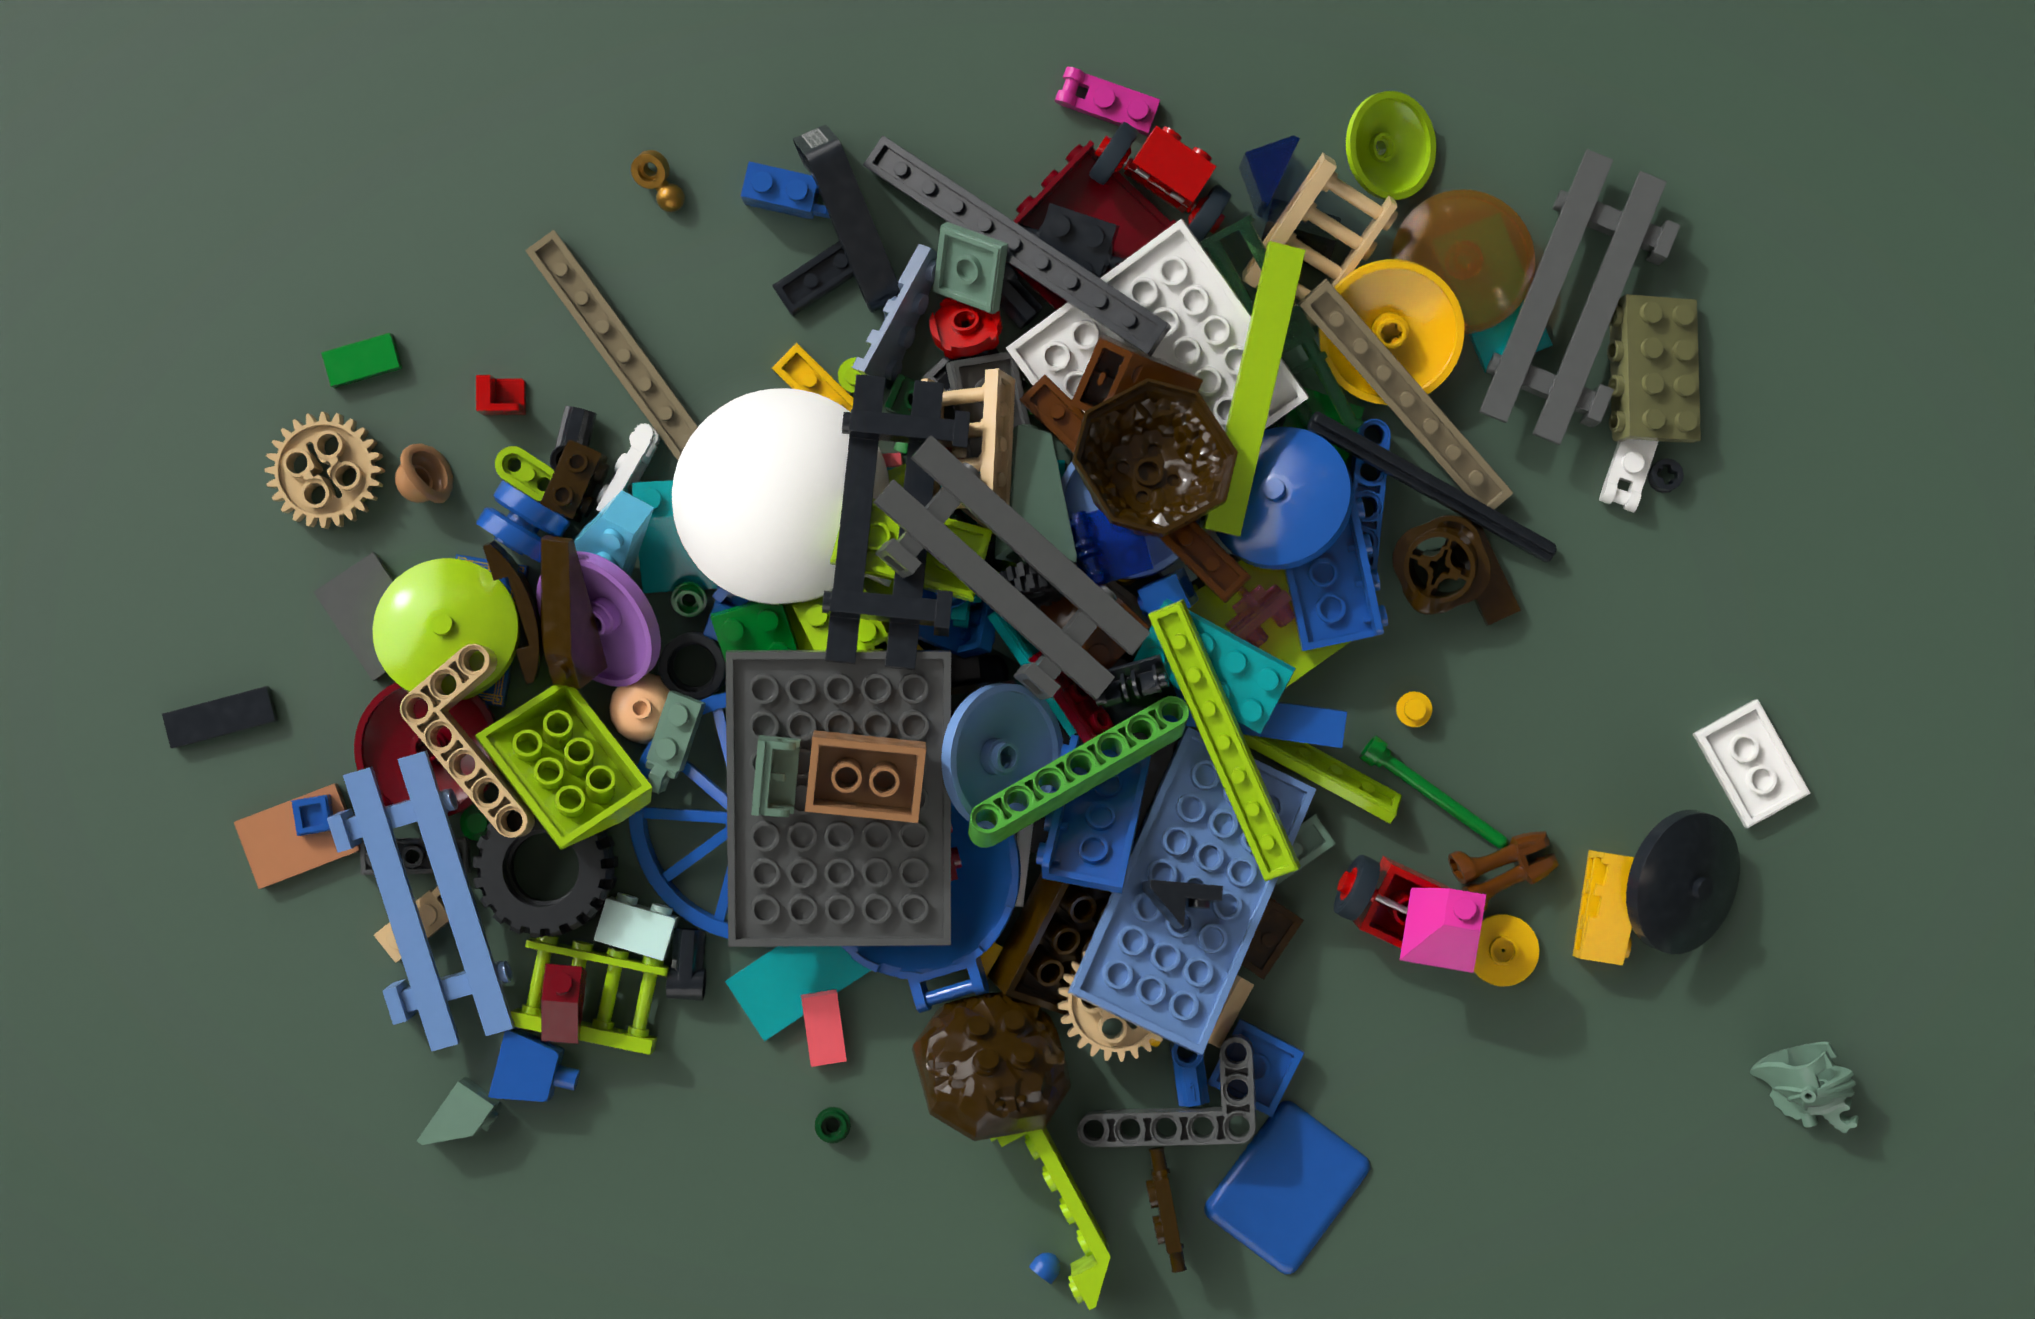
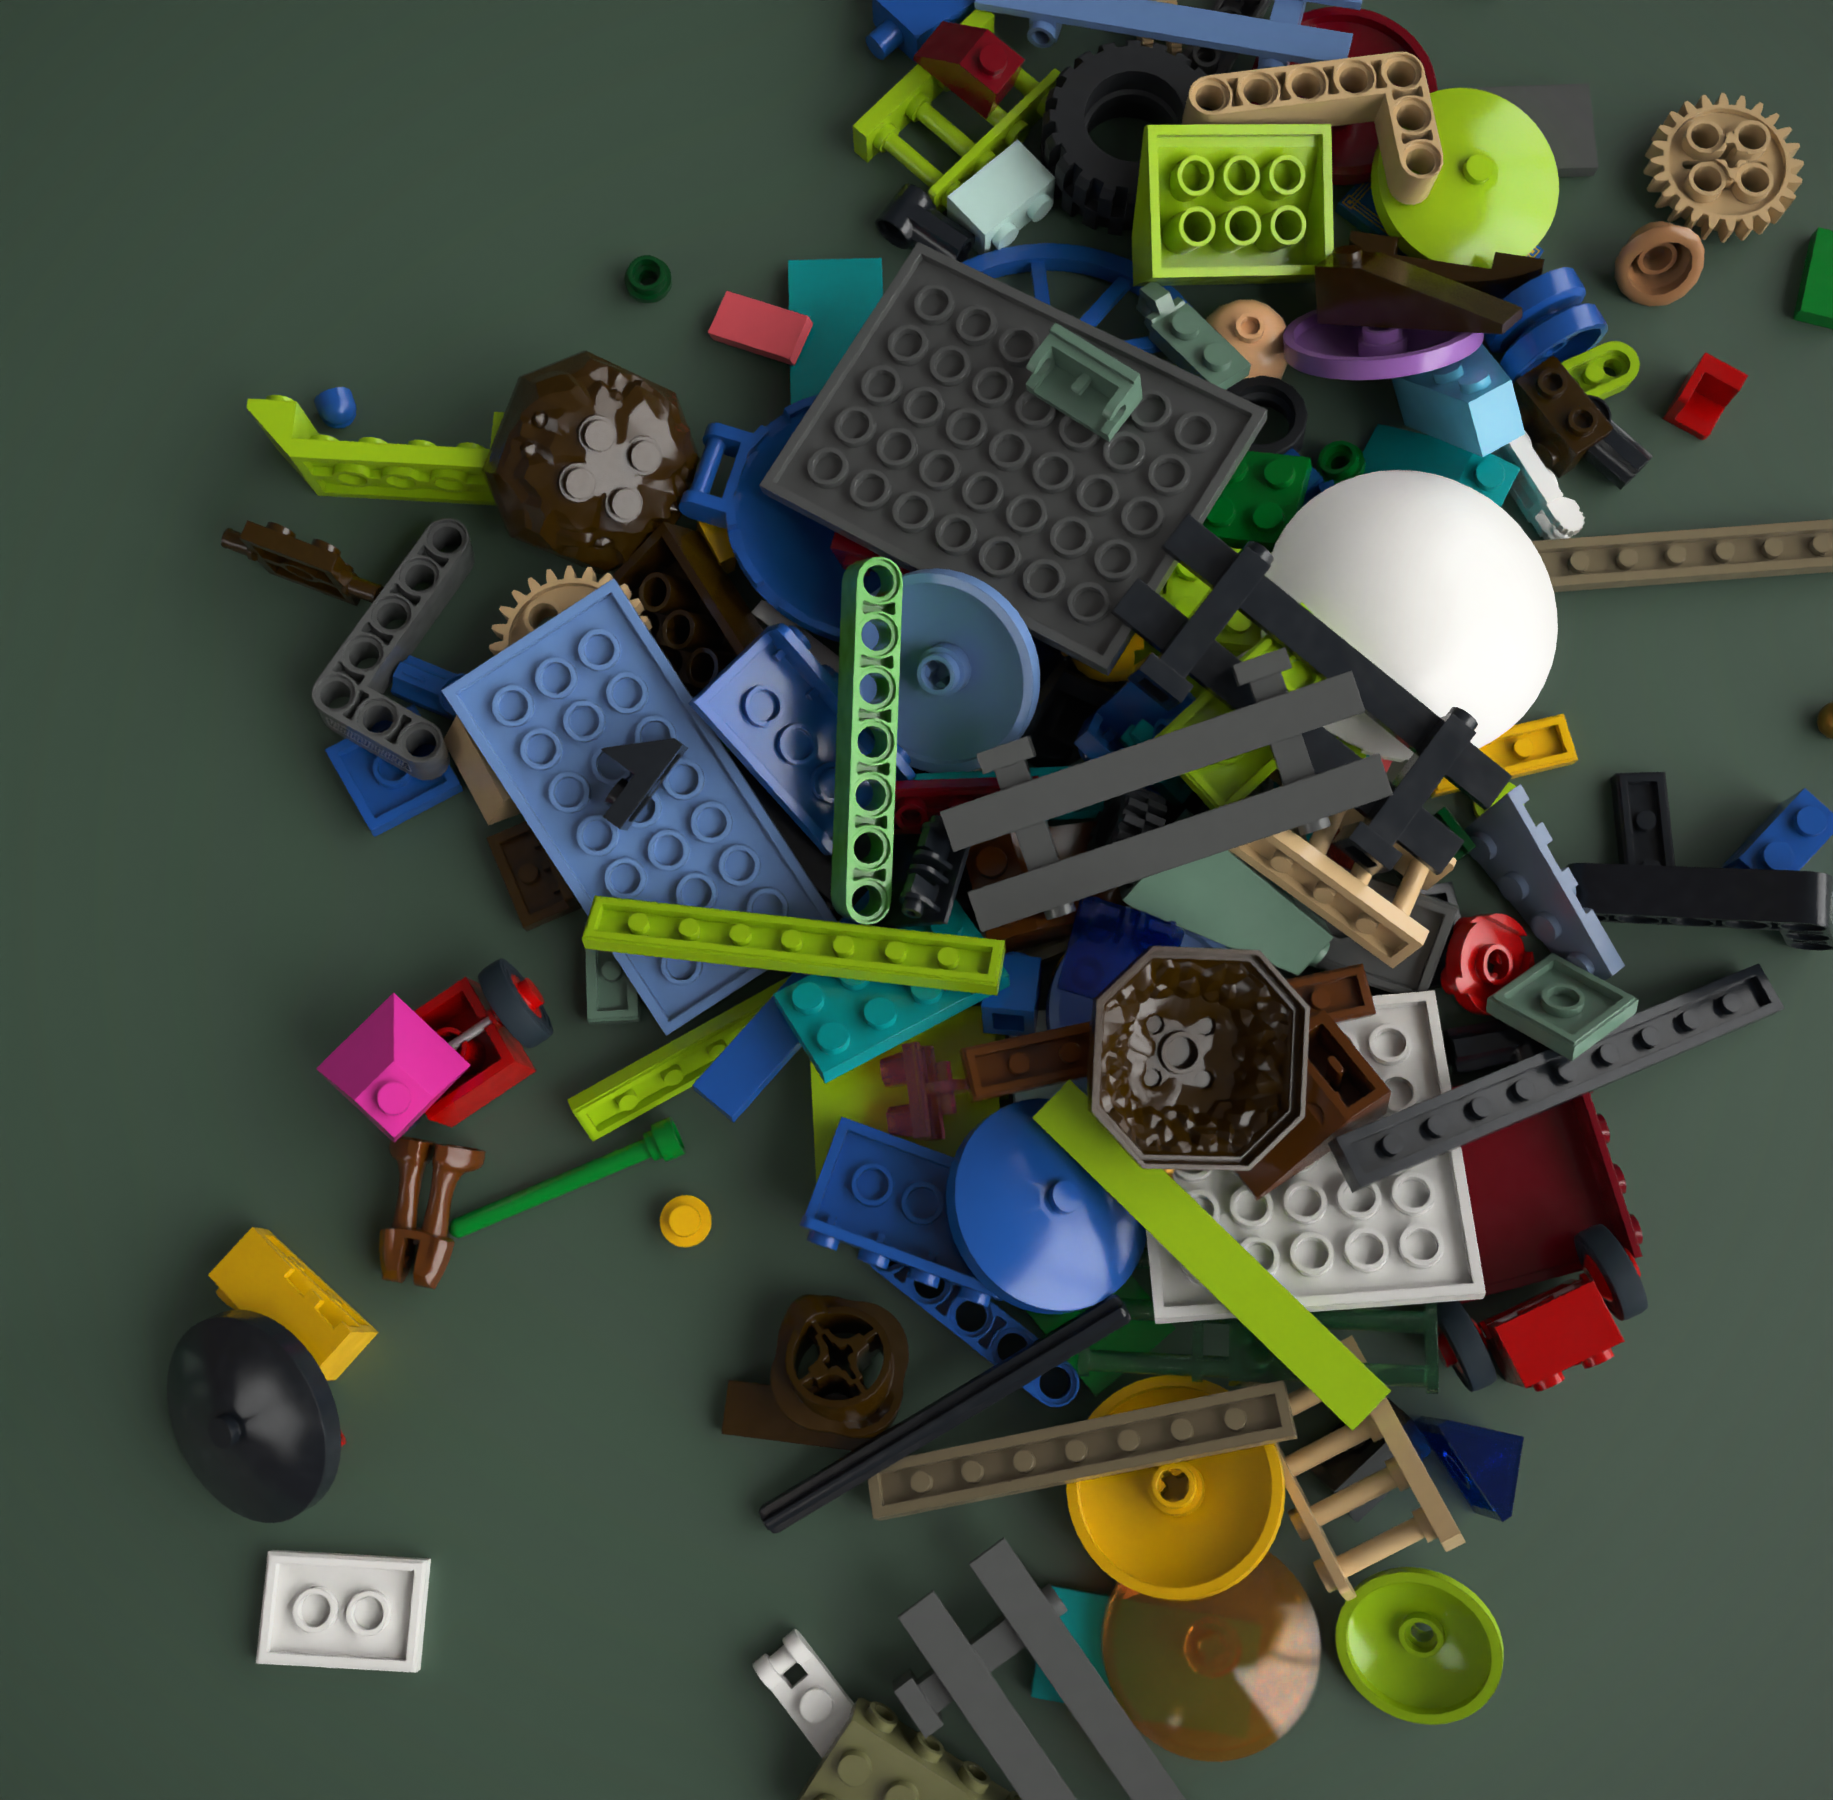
camera: 125 degrees right, 10 degrees down
(865, 776) = (1018, 477): medium nougat brick -> none
(1080, 238) = (1523, 1161): black plate -> none
(1107, 101) = (1676, 1316): dark pink plate -> none
(1287, 1187) = (238, 728): blue piece -> none
(1519, 953) = (325, 1171): yellow piece -> none
(1657, 483) = (776, 1756): black bush -> none

